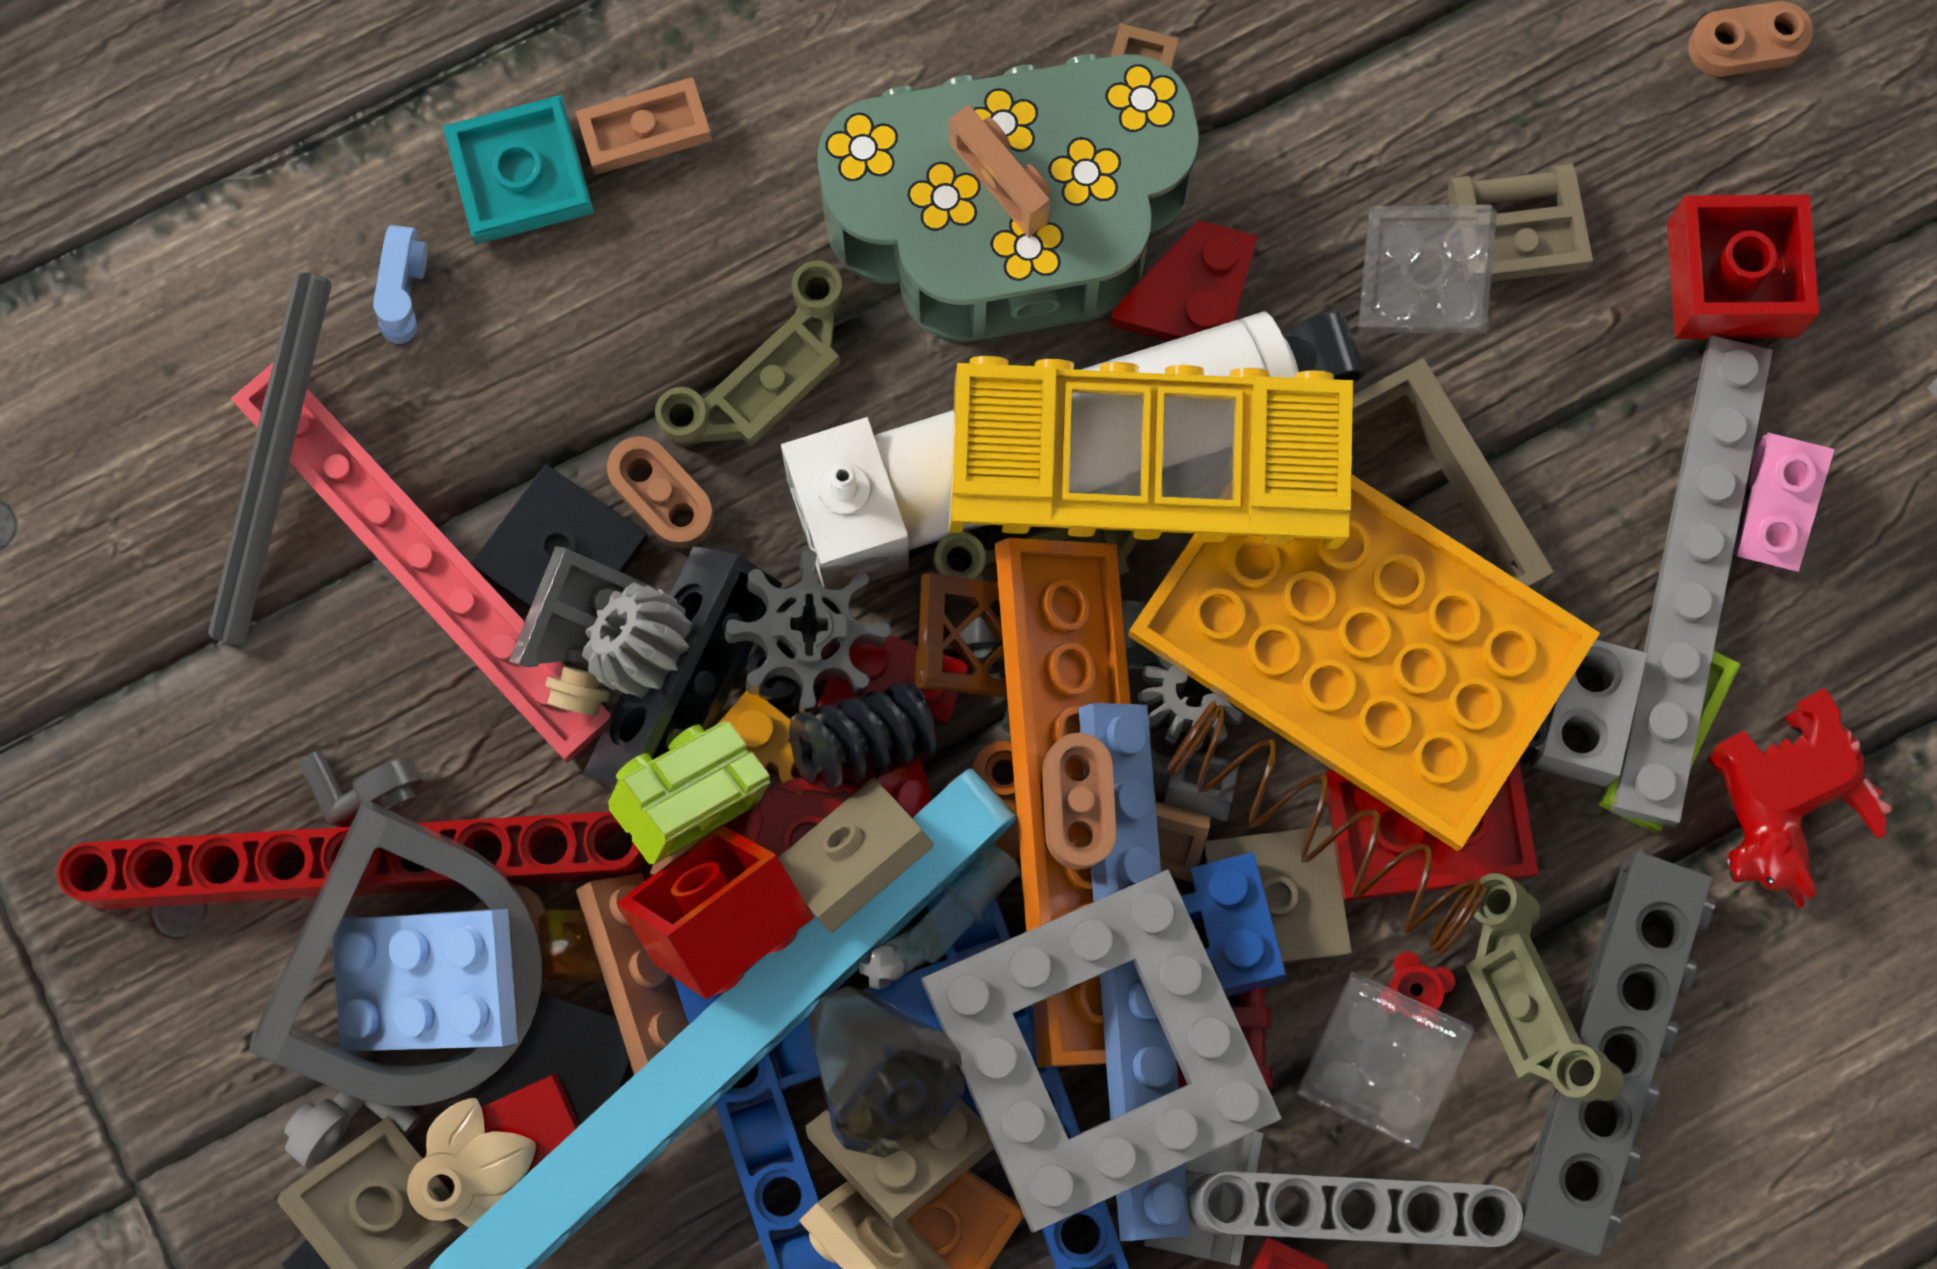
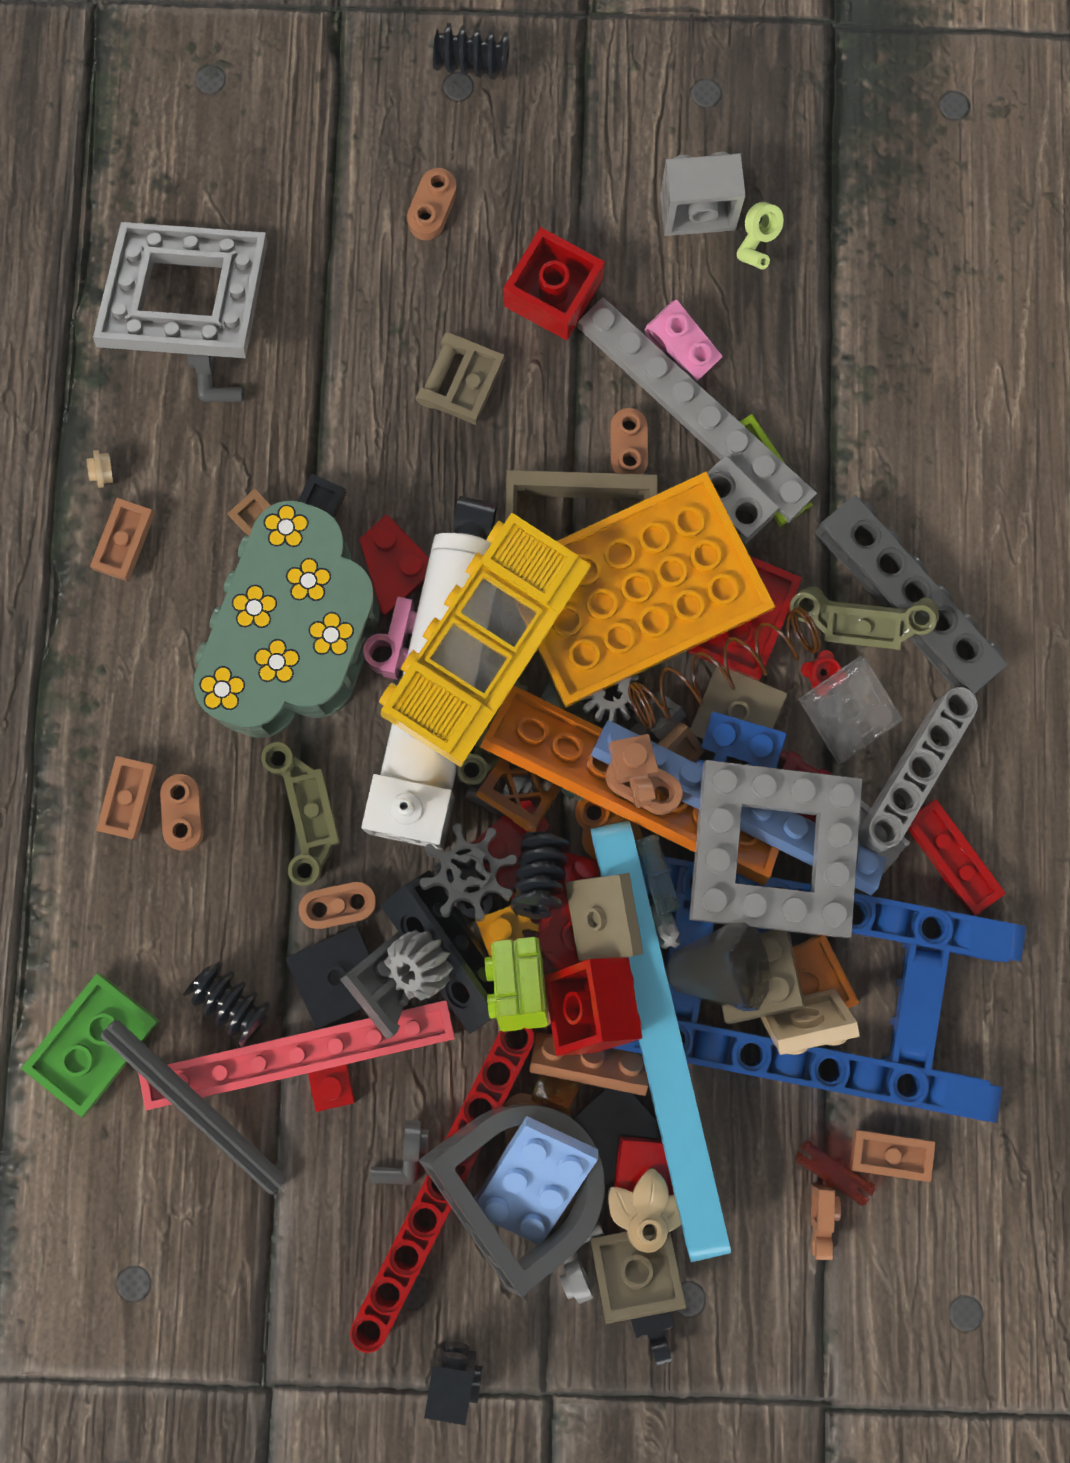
camera: 60 degrees left, 5 degrees up
(79, 1028) = (453, 1383): none -> black brick
(246, 265) = (73, 1056): none -> bright green plate
(400, 263) = (124, 974): light blue plate -> none
(402, 633) = (331, 1088): none -> red plate
(437, 422) = (229, 1002): none -> black piece
(518, 169) = (108, 880): teal plate -> none
(576, 691) = (425, 1012): tan plate -> none
(672, 213) = (183, 811): none -> nougat plate
(986, 153) = (268, 626): nougat plate -> none
(1087, 347) = (401, 626): none -> bright pink plate
(1097, 766) = (635, 763): none -> nougat plate
(1224, 136) = (323, 495): none -> black plate
(1427, 269) = (459, 439): clear plate -> none
(1580, 512) = (628, 442): none -> nougat plate
(1788, 783) = (827, 429): red animal -> none

